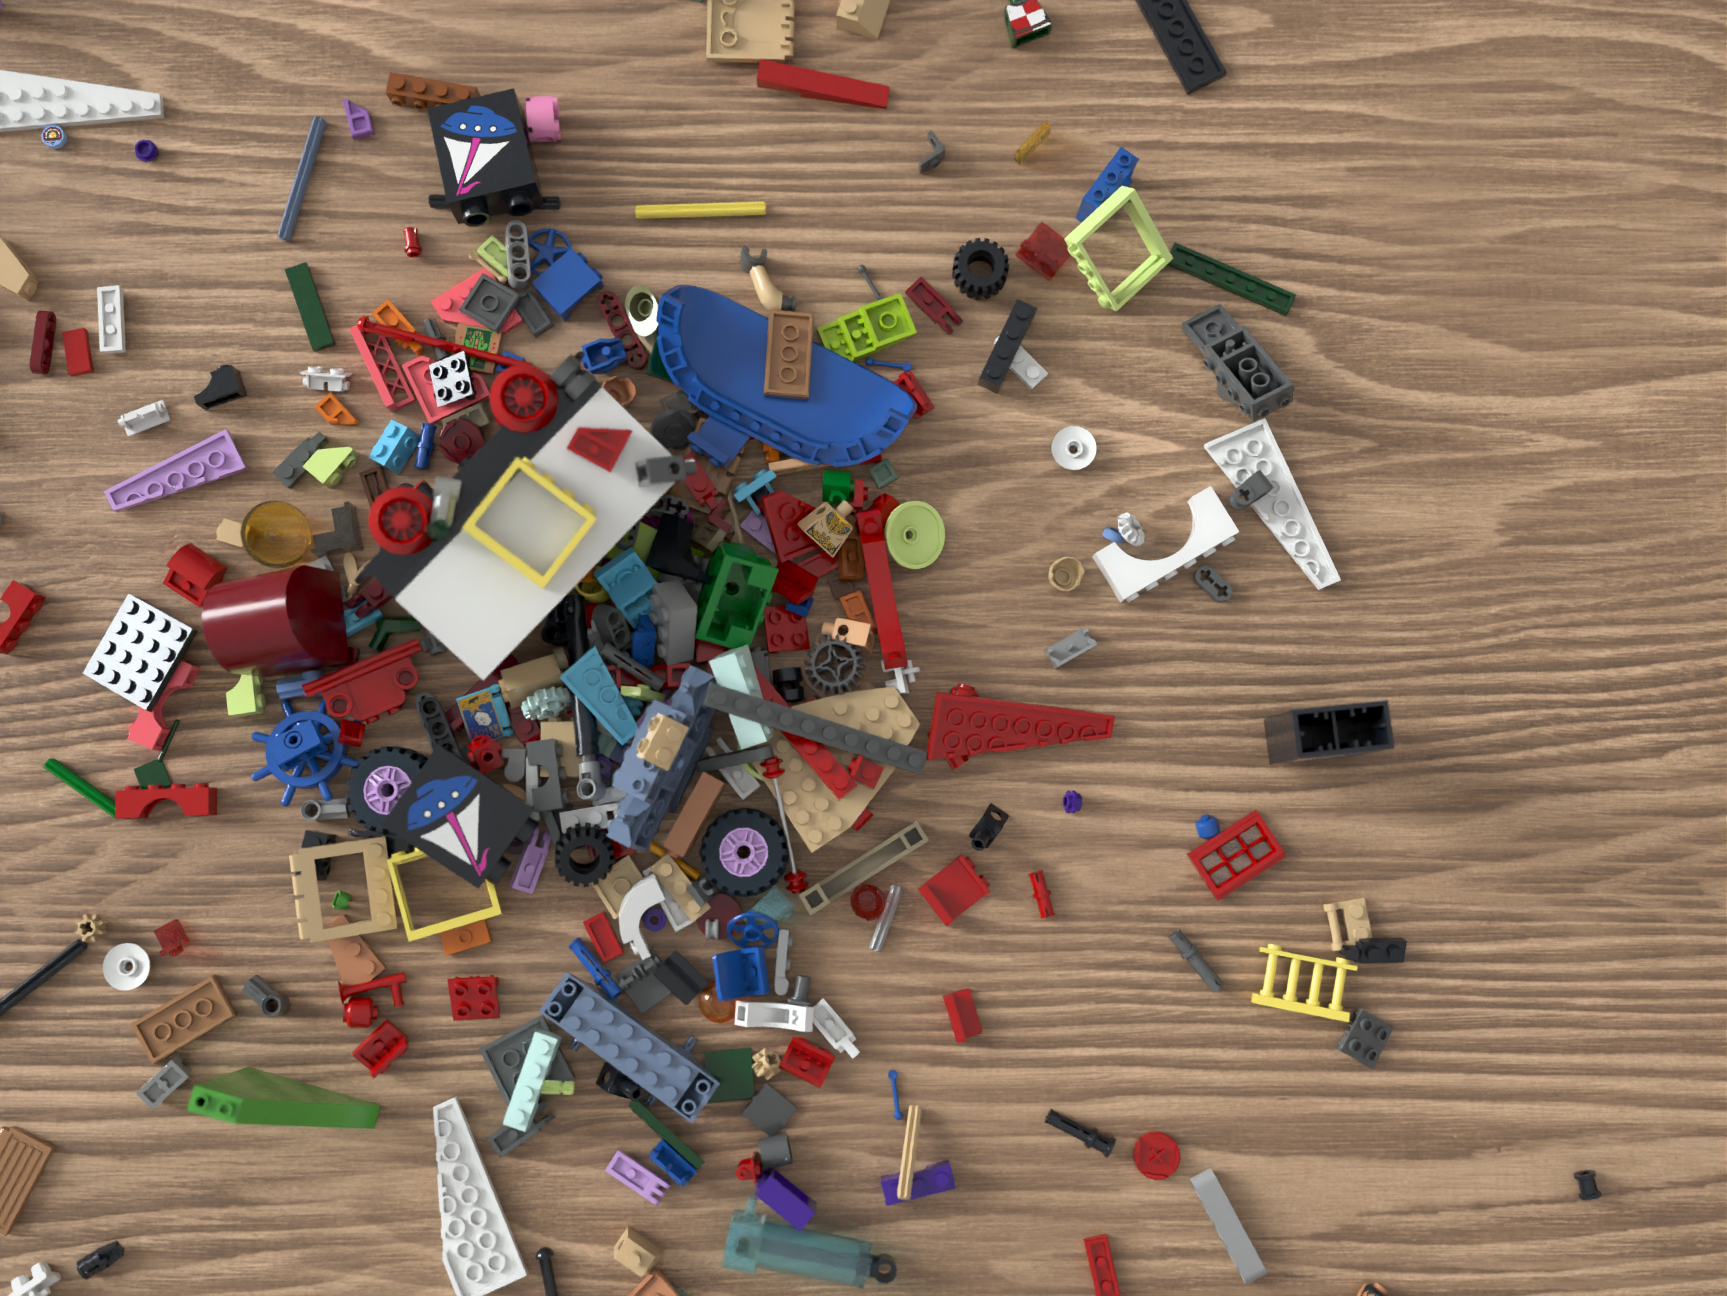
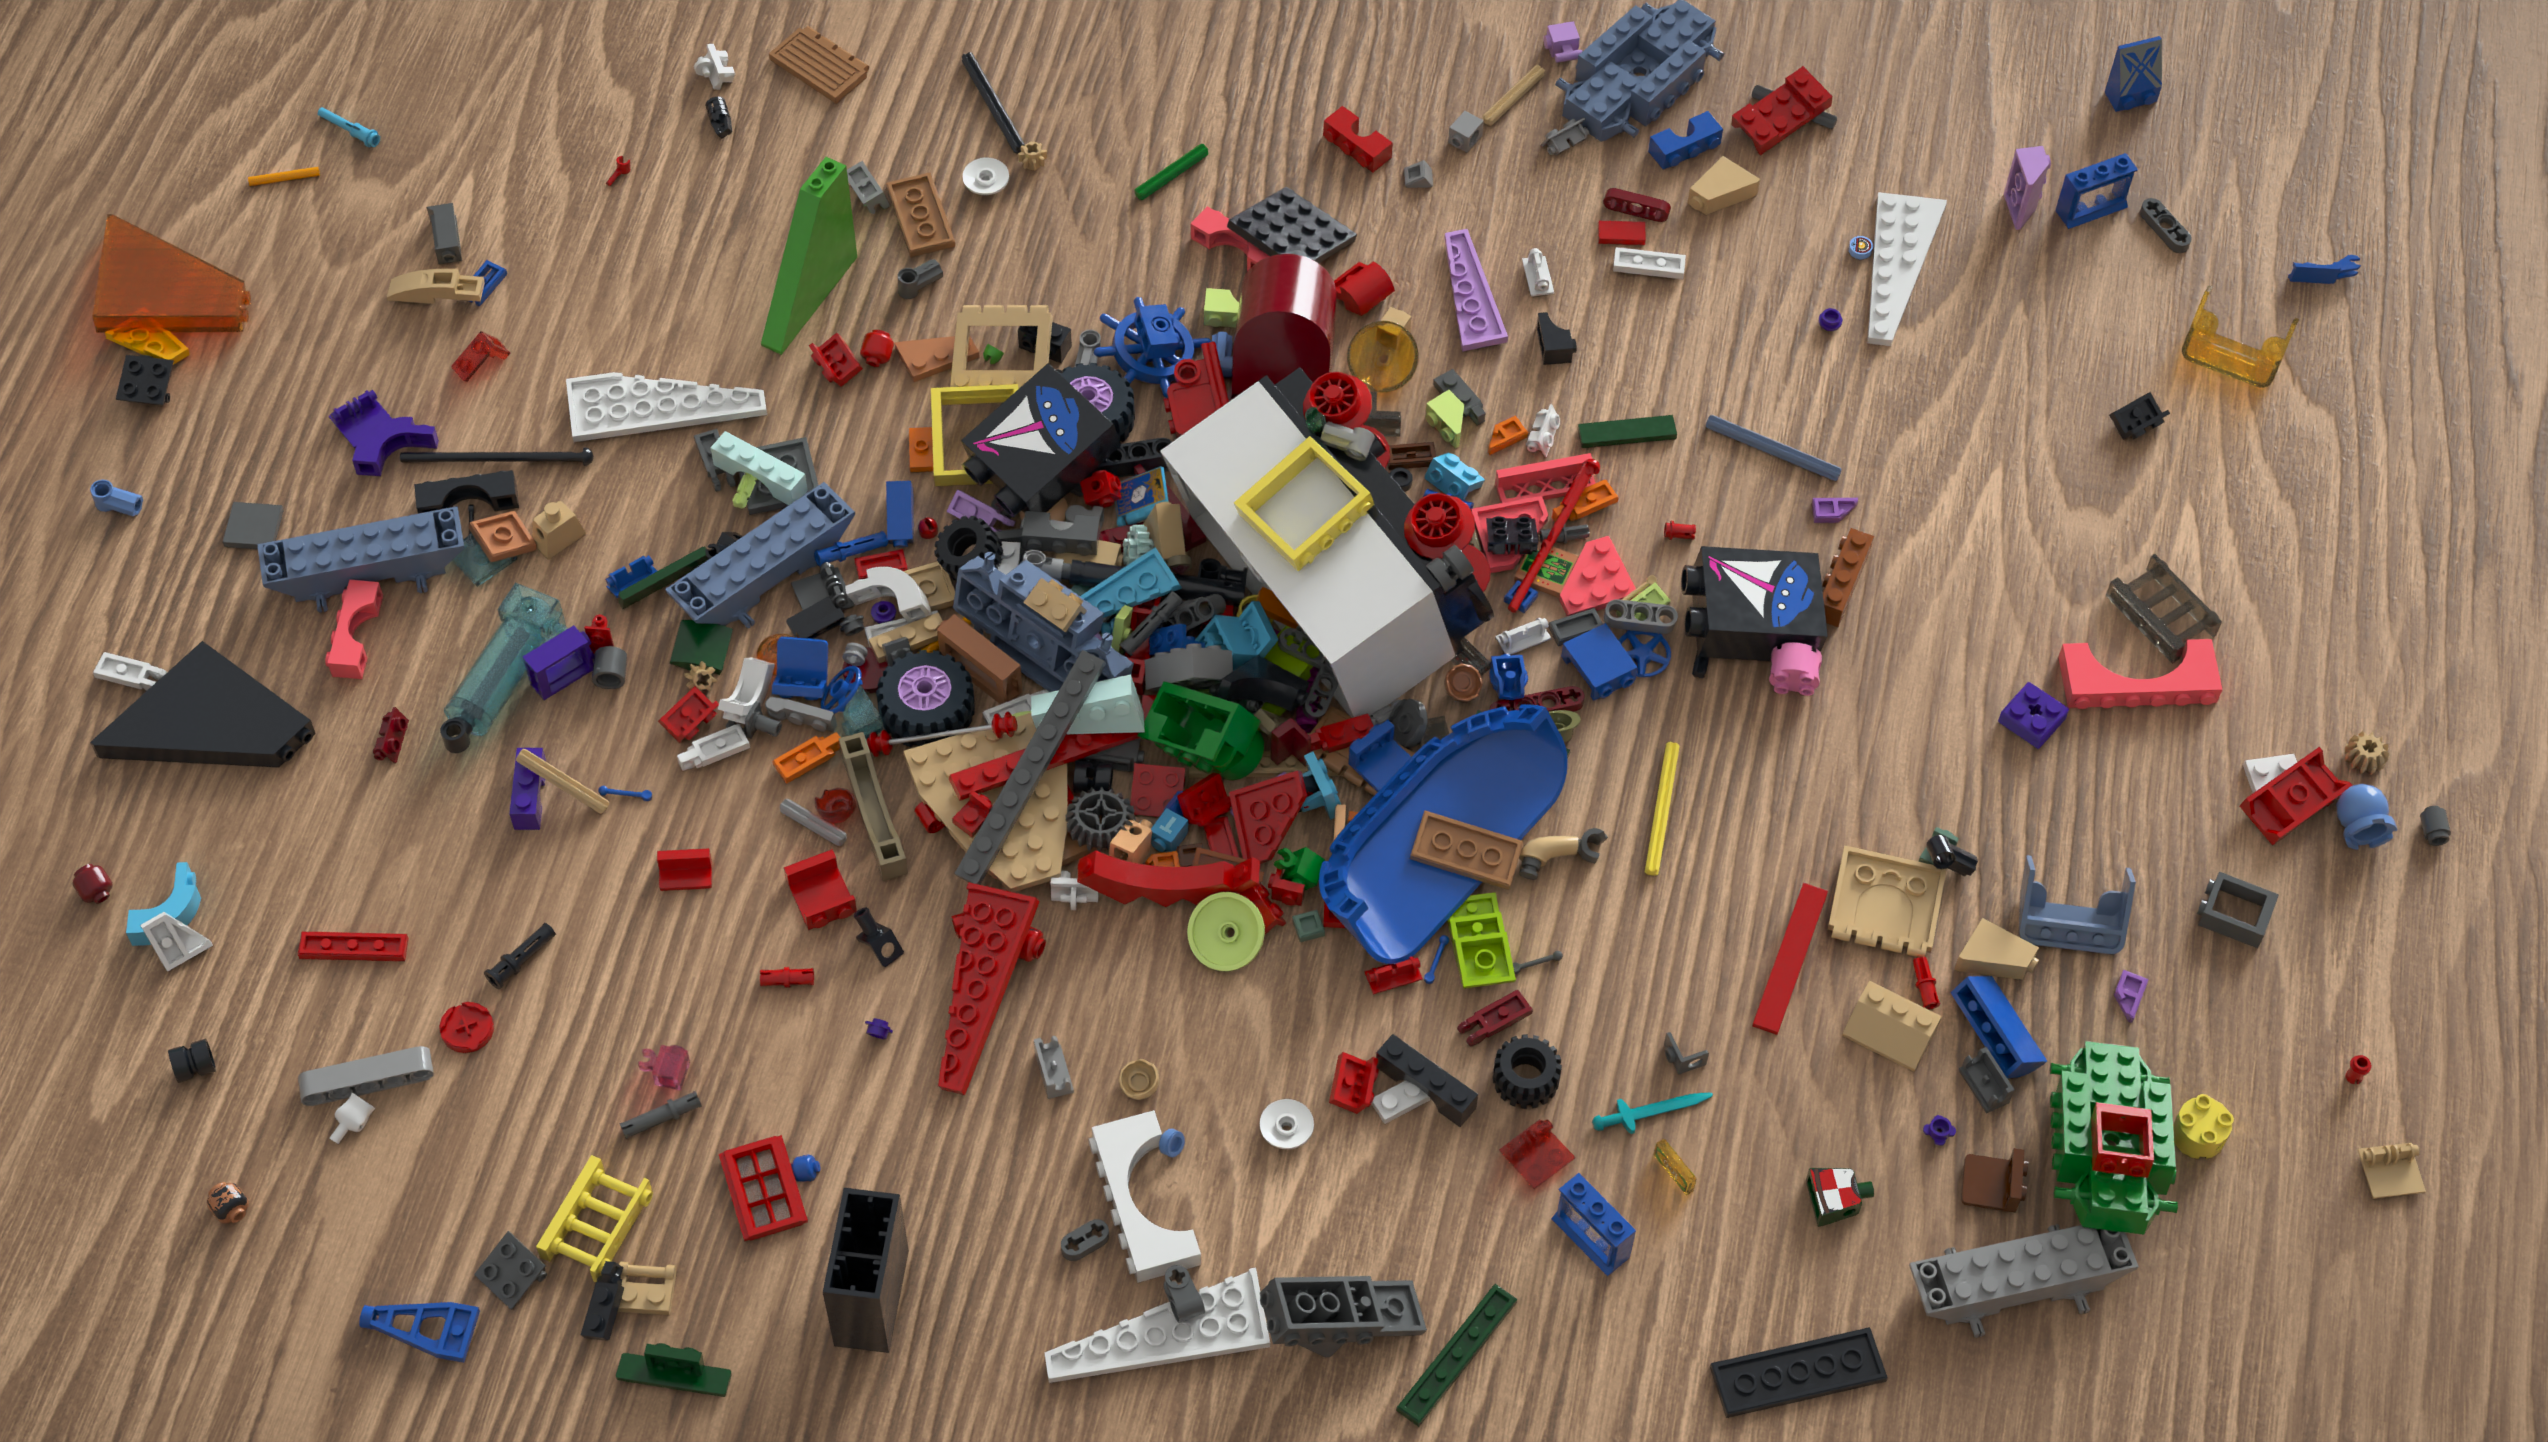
camera: 105 degrees right, 25 degrees down
(43, 552) = (1418, 175): none -> light grey slope
(138, 803) = (1130, 252): red arch -> none
(155, 772) = (1170, 227): dark green piece -> none
(171, 938) = (1001, 216): clear red bracket -> none
(351, 733) = (1156, 383): red tile -> none
(394, 981) = (898, 382): red piece -> none
(474, 997) = (859, 444): red hinge -> none
(490, 303) = (1591, 584): dark grey tile -> none
(547, 933) = (900, 513): none -> blue slope
(550, 350) = (1524, 636): none -> white hinge
(556, 909) = (924, 530): none -> red hinge
(599, 445) = (1370, 577): red wing -> none
(637, 1176) = (630, 546): lavender hinge -> none
(656, 470) = (1330, 630): dark grey torso -> none
(677, 943) = (852, 624): none -> dark grey plate
(734, 758) = (1027, 687): dark grey beam -> none
(769, 1110) = (652, 673): dark grey piece -> none
(823, 943) = (806, 756): none -> orange hinge
(825, 608) = (1169, 831): none -> dark azure brick
(828, 526) = (1255, 837): torso -> none
(994, 188) = (1627, 1116): none -> teal sword
(1023, 402) = (1353, 1082): none -> red bracket
(1131, 529) = (1165, 1152): white gear -> none
(1144, 273) = (1478, 1182): yellowish green window -> none
(1152, 967) = (669, 1067): none -> clear pink brick
(1267, 1223) = (351, 1116): none -> white piece
(1414, 877) = (673, 1369): none -> dark green bracket
(1439, 1064) = (455, 1335): none -> blue plate

